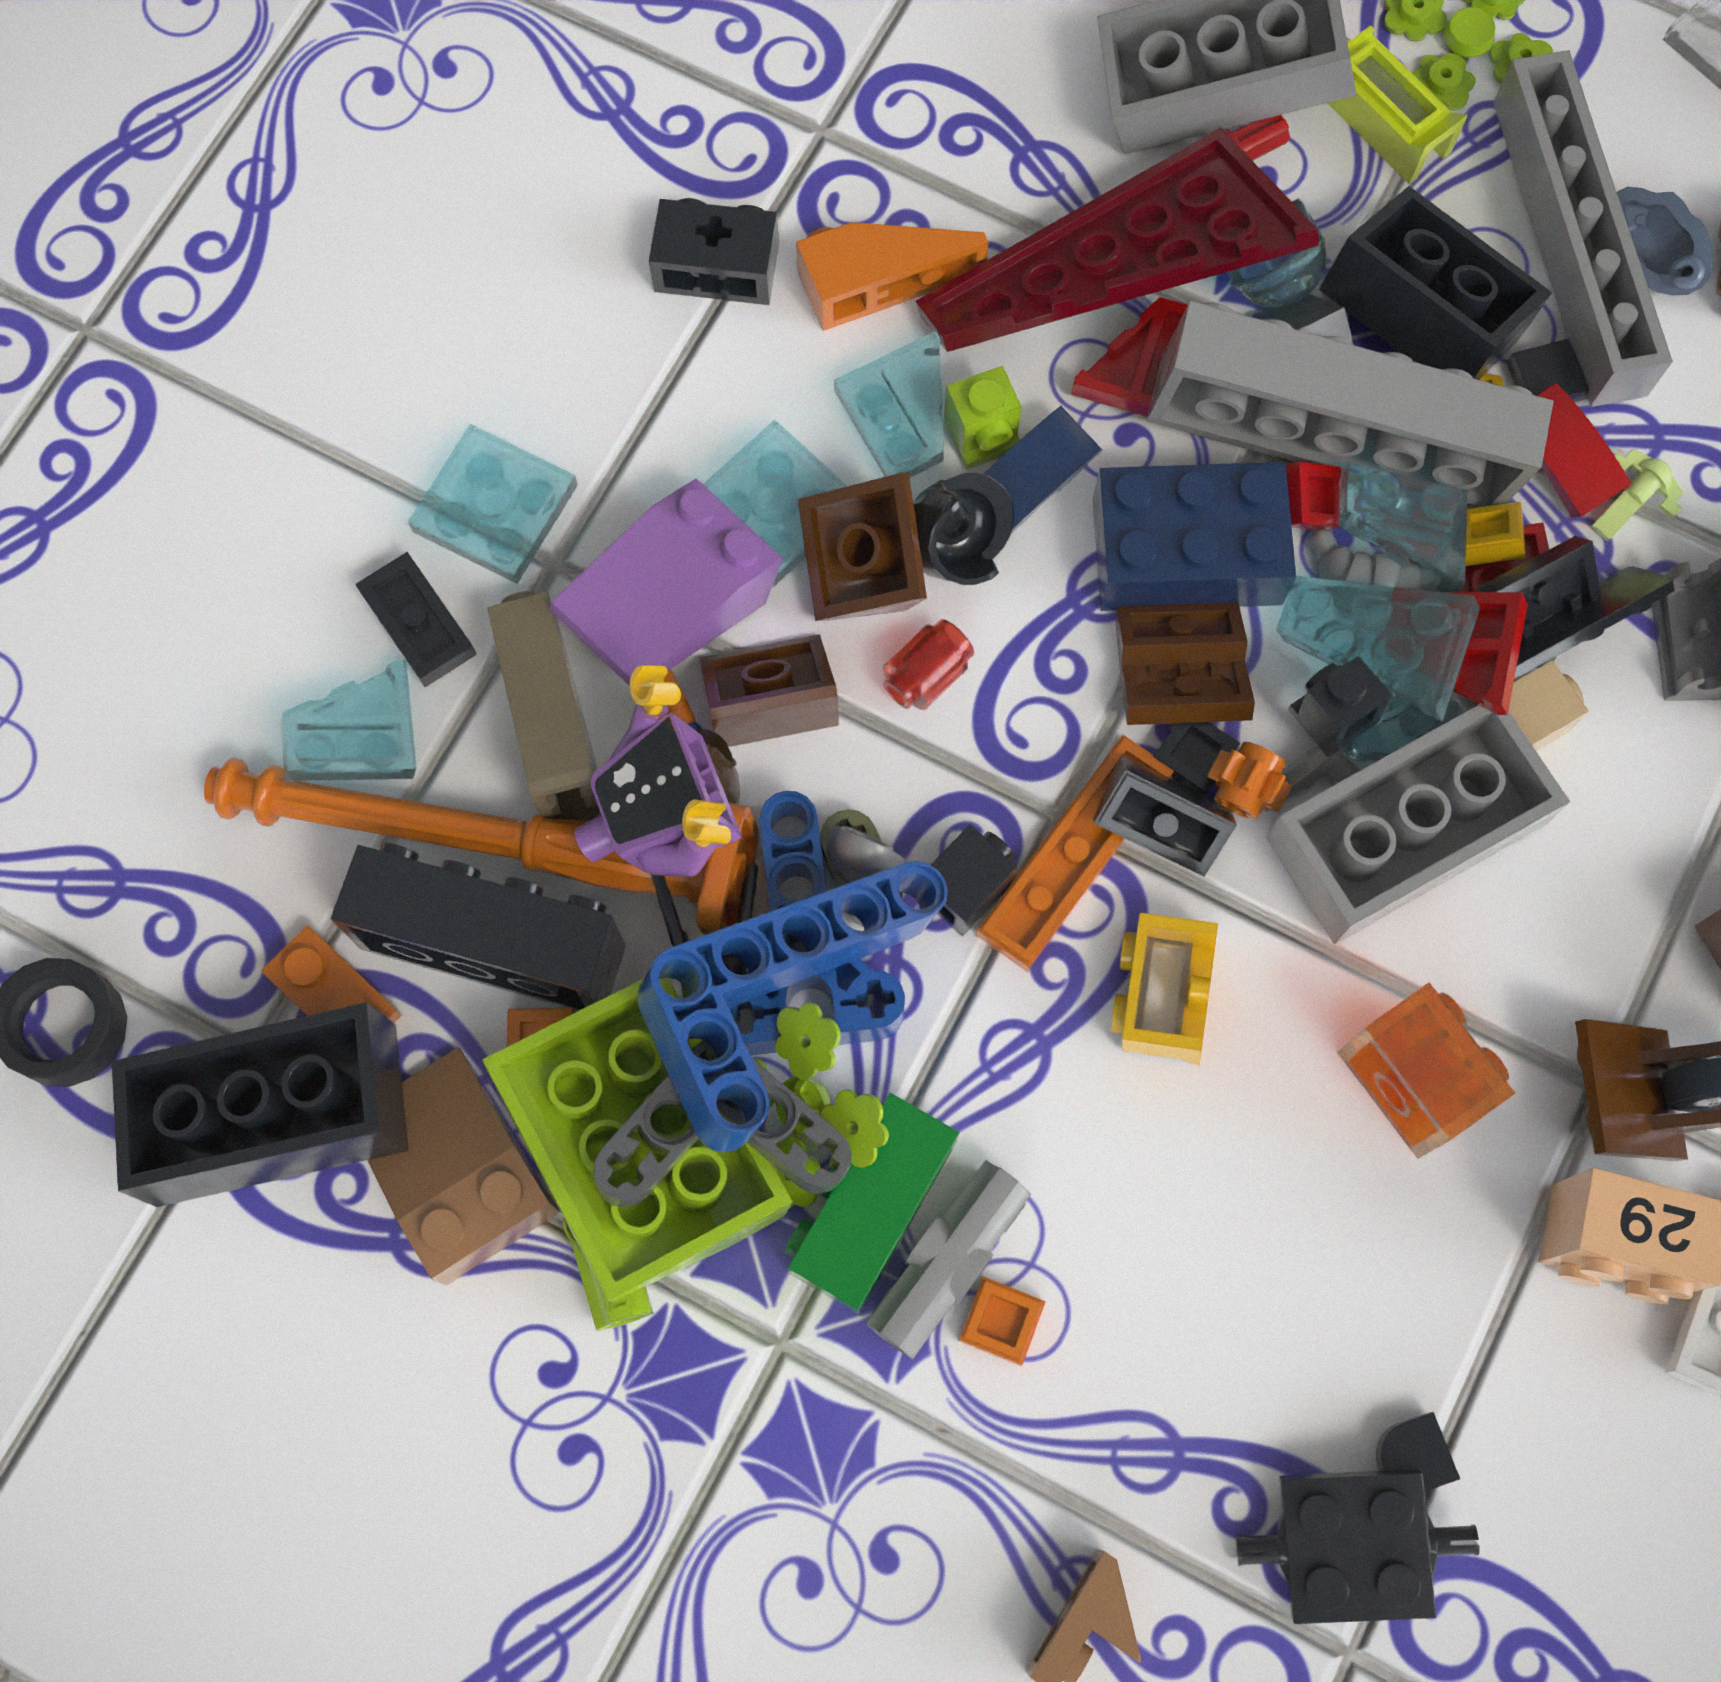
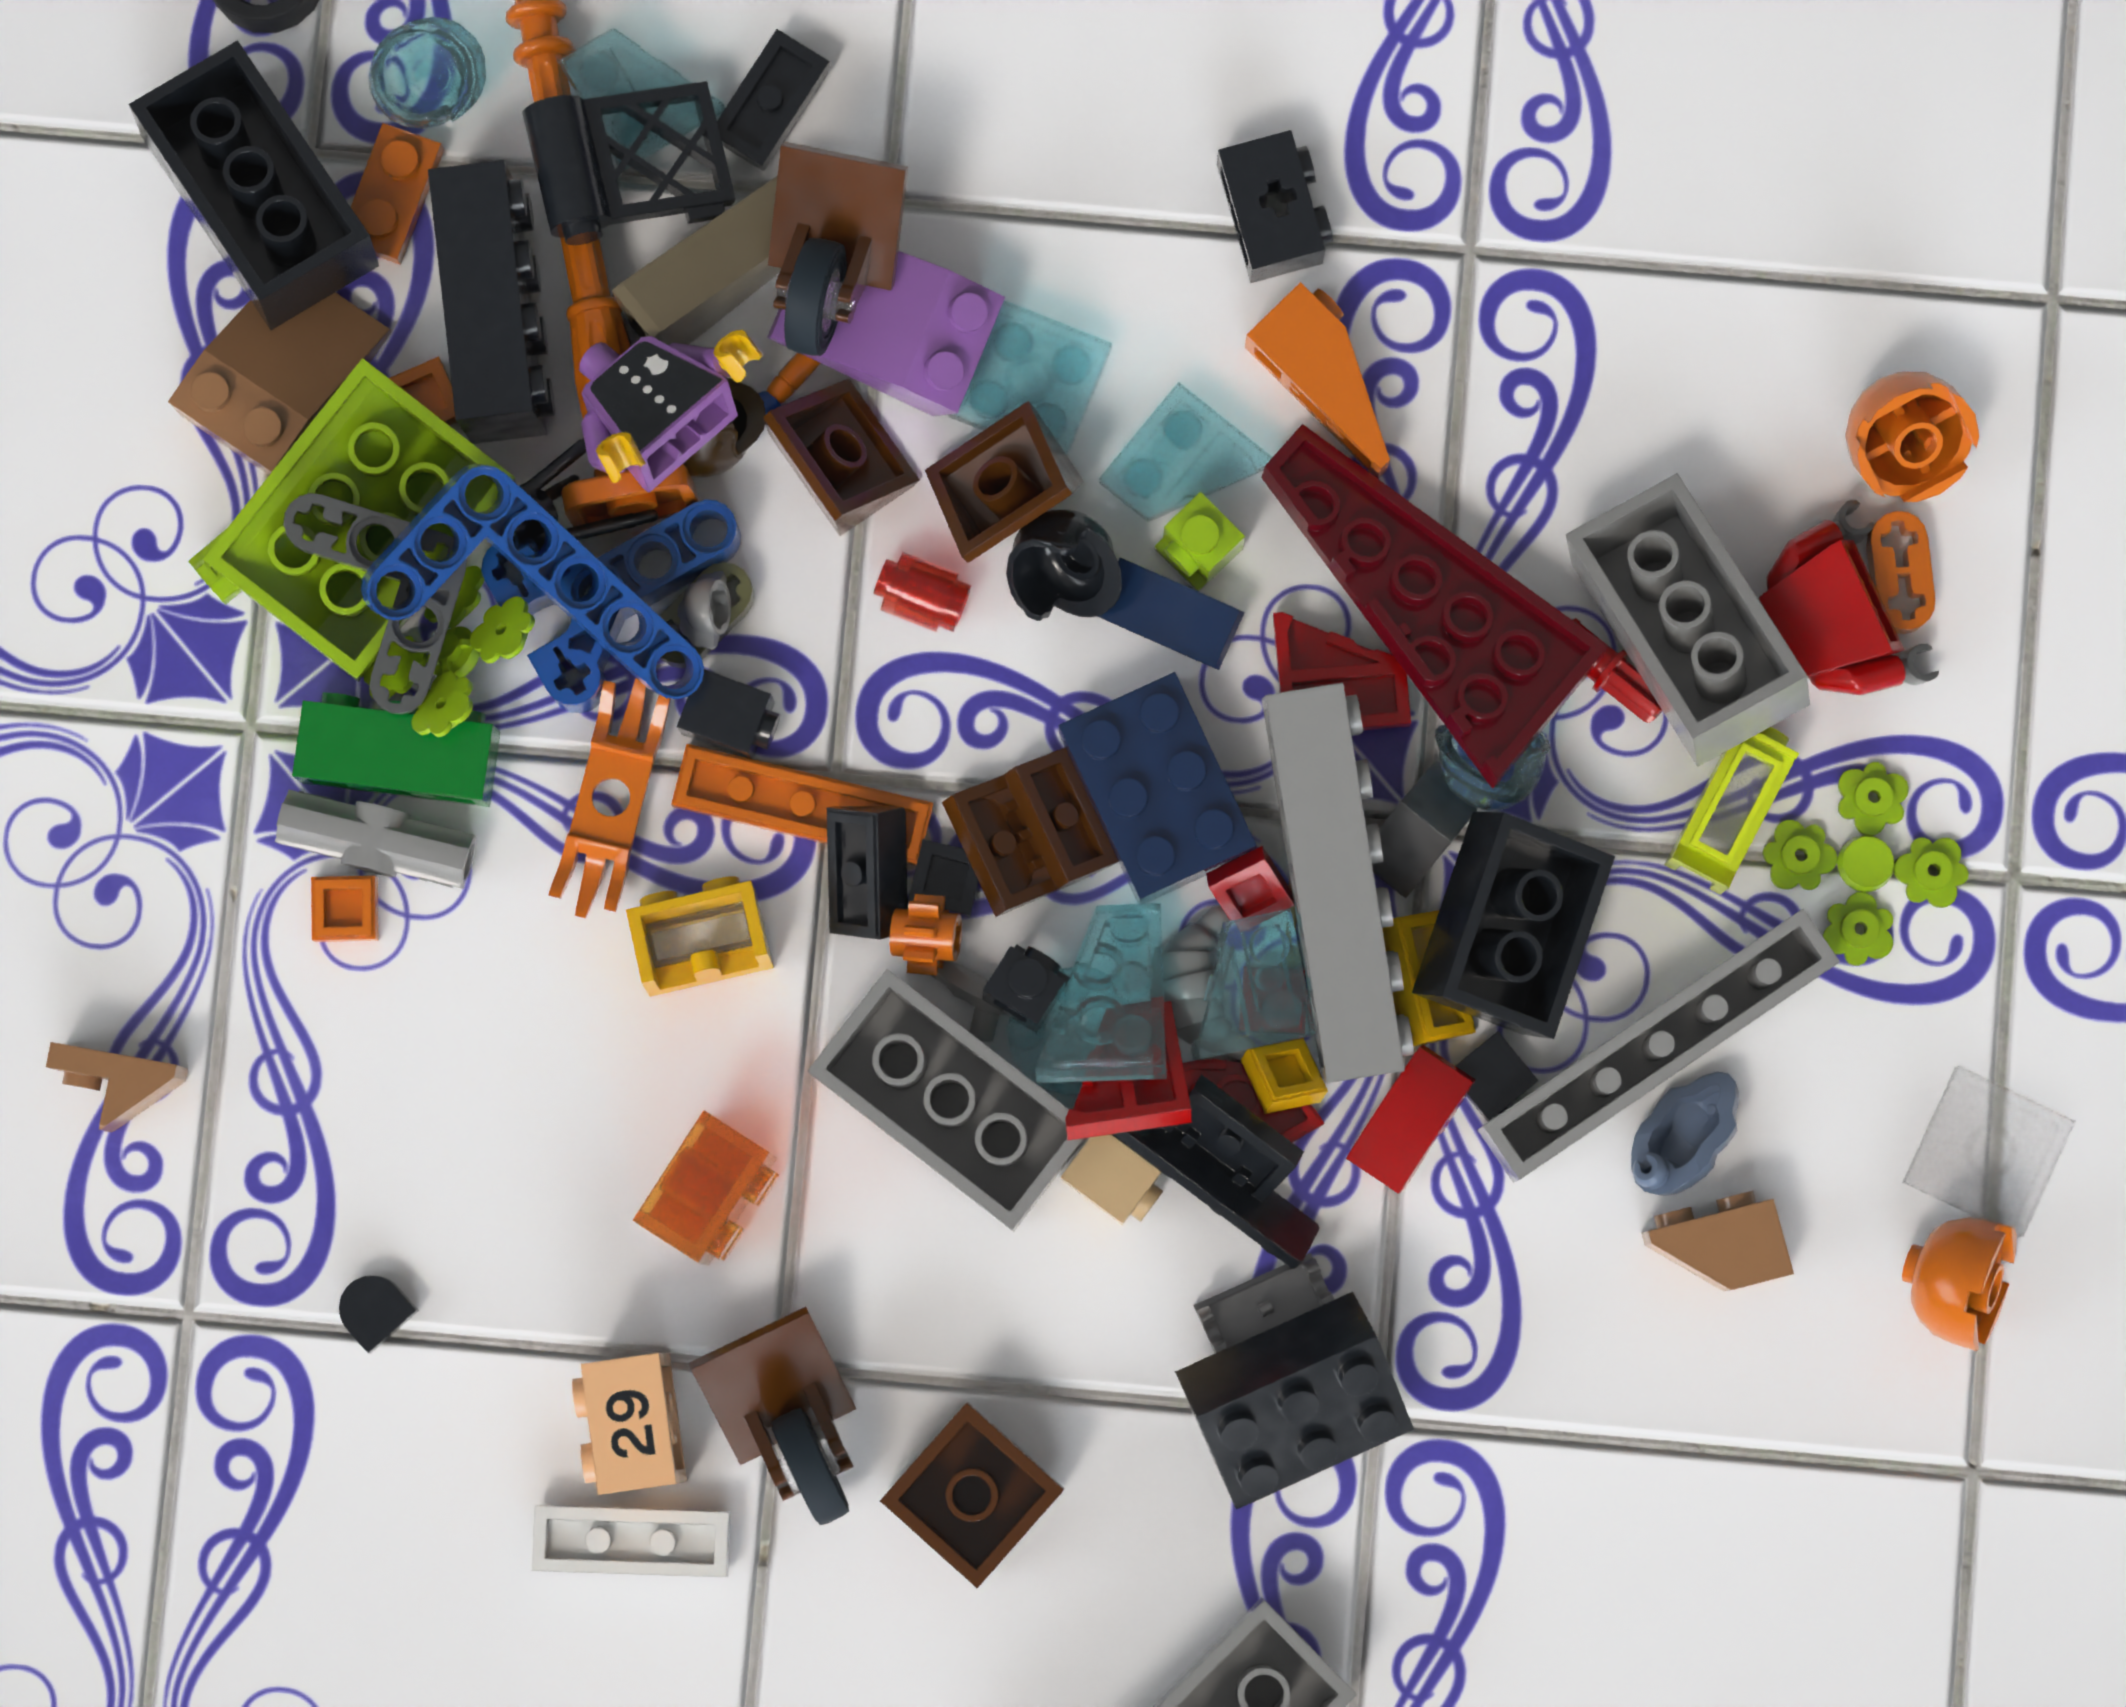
camera: 70 degrees right, 10 degrees up
(236, 903) = (427, 73): none -> clear light blue helmet
(398, 792) = (579, 172): none -> black piece
(493, 503) = (919, 113): clear light blue plate -> none
(576, 578) = (832, 238): none -> reddish brown plate
(1025, 1050) = (611, 836): none -> orange piece
(1357, 1546) = (274, 1283): black plate -> none
(1651, 476) = (1422, 1214): yellowish green piece -> none

